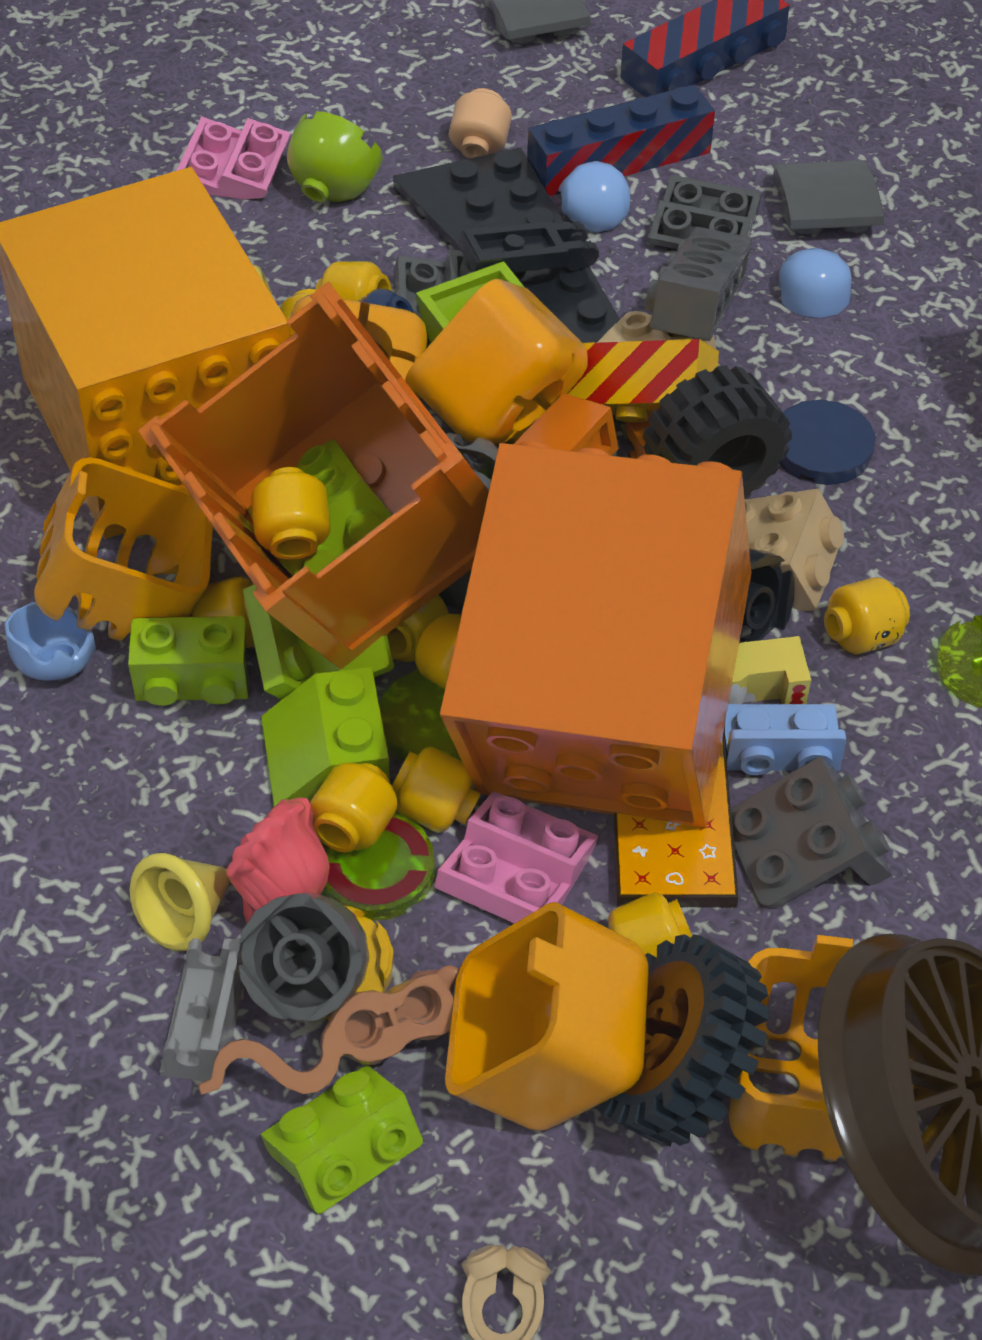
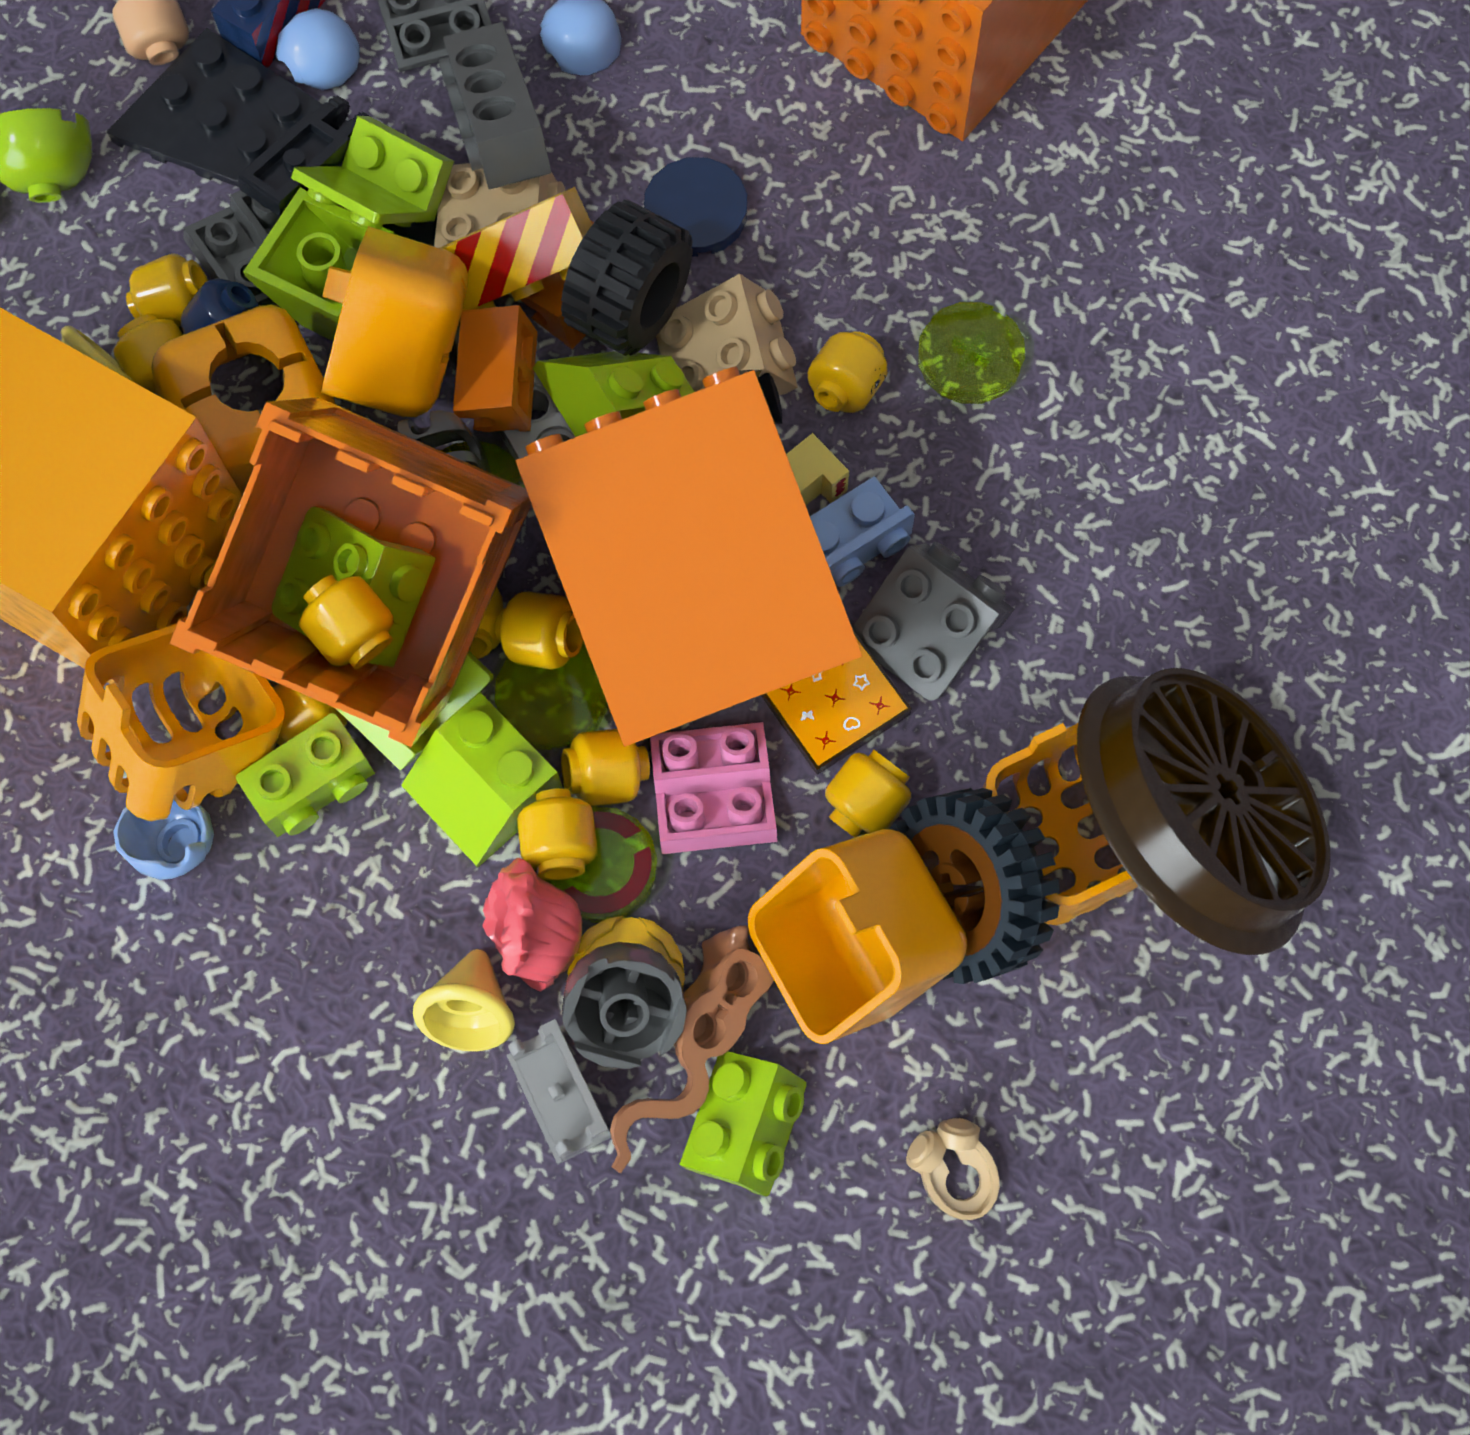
camera: 30 degrees left, 20 degrees up
(579, 289) = (381, 177): none -> lime bracket

